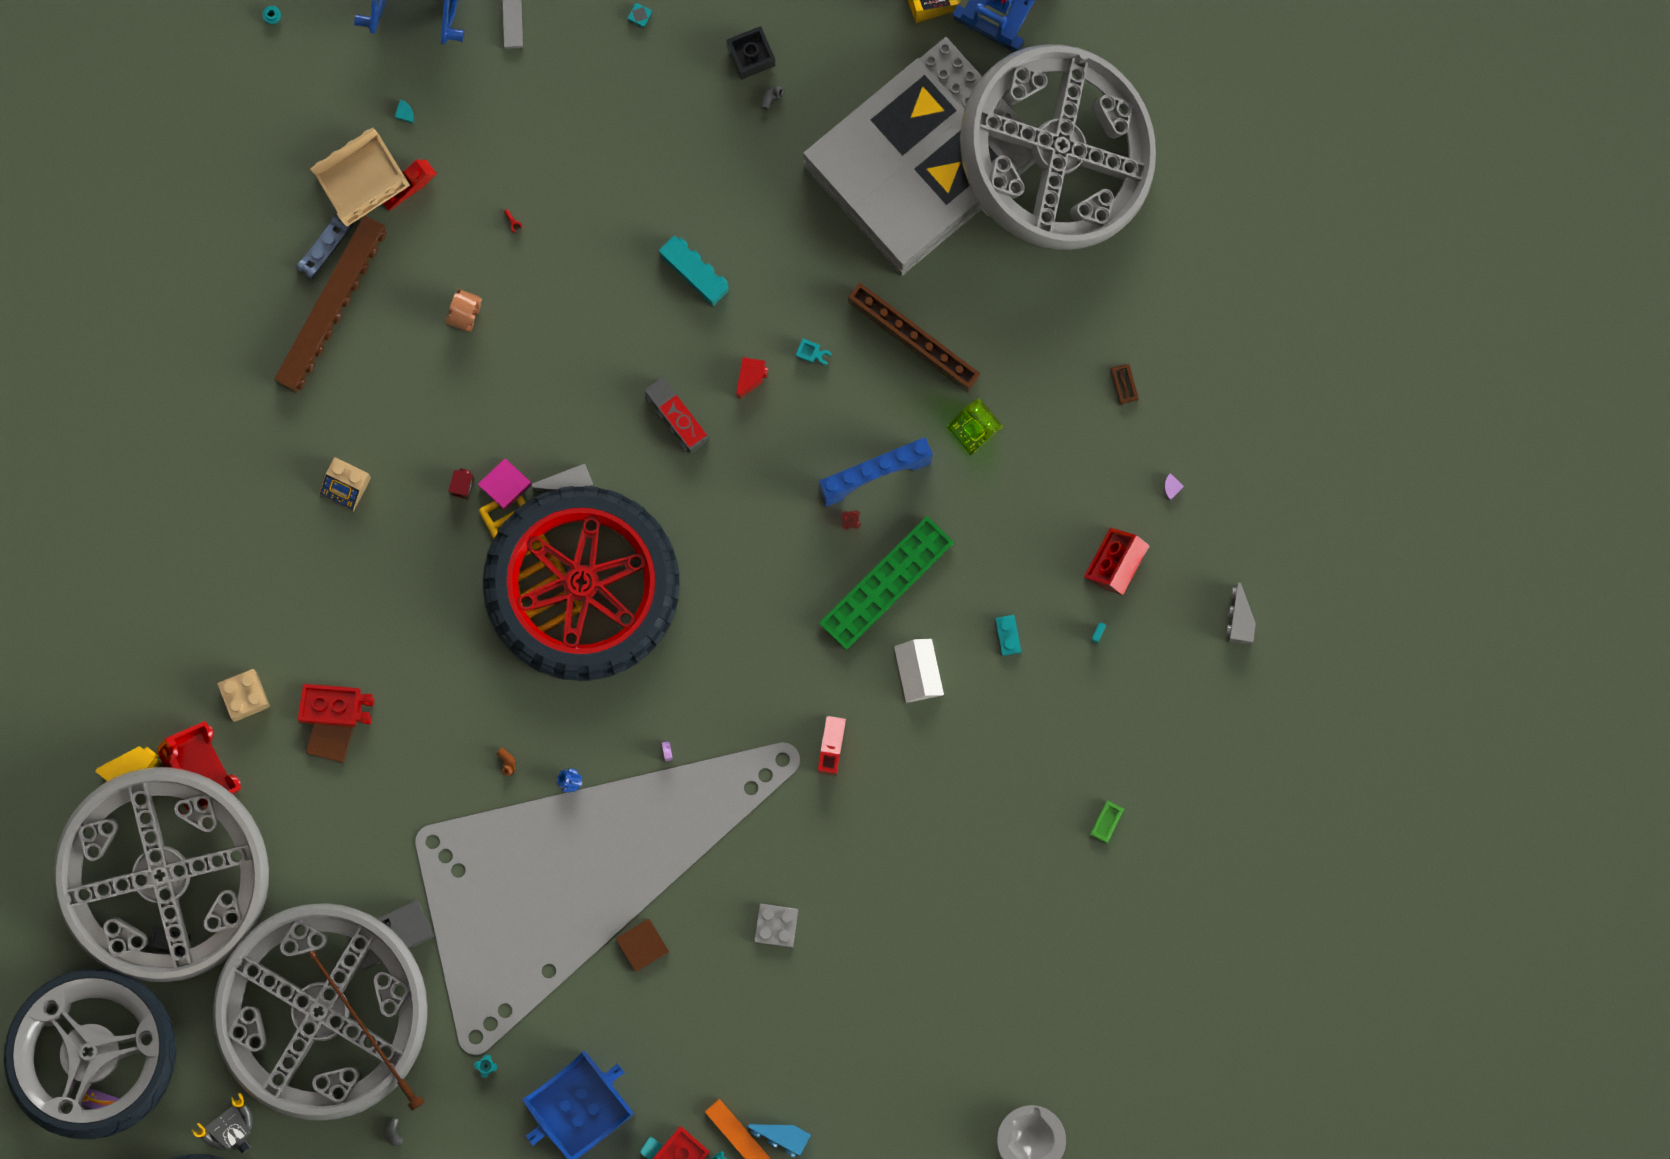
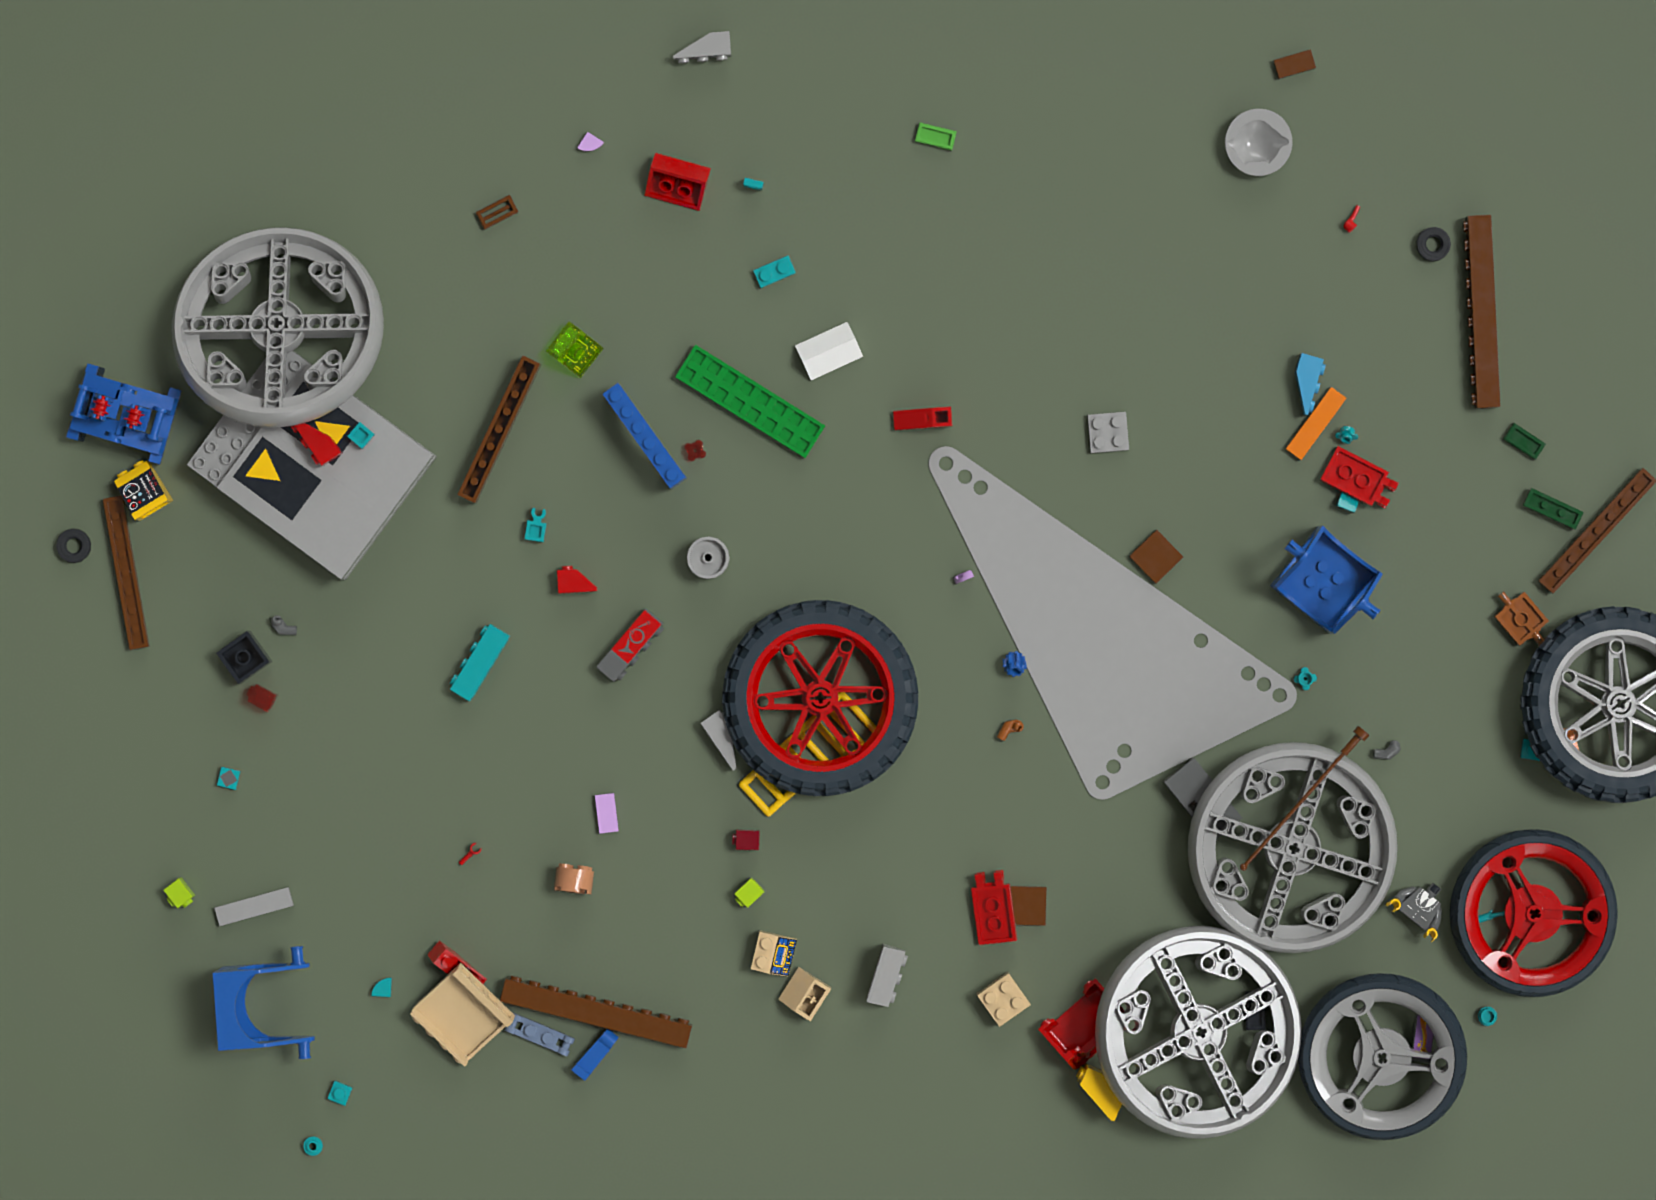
camera: 100 degrees left, 10 degrees up
(289, 293) = (595, 1054): none -> blue leg
(295, 586) = (886, 975): none -> light grey slope
(297, 505) = (804, 994): none -> tan slope
(315, 51) = (340, 1093): none -> teal plate
(409, 474) = (748, 893): none -> lime brick
(505, 484) = (737, 796): dark pink tile -> none
(520, 357) = (606, 813): none -> lavender tile
(709, 61) = (262, 697): none -> clear red brick
(743, 518) = (704, 568): none -> light grey wheel
(936, 200) = (361, 435): none -> teal plate
(937, 160) = (321, 444): none -> red slope

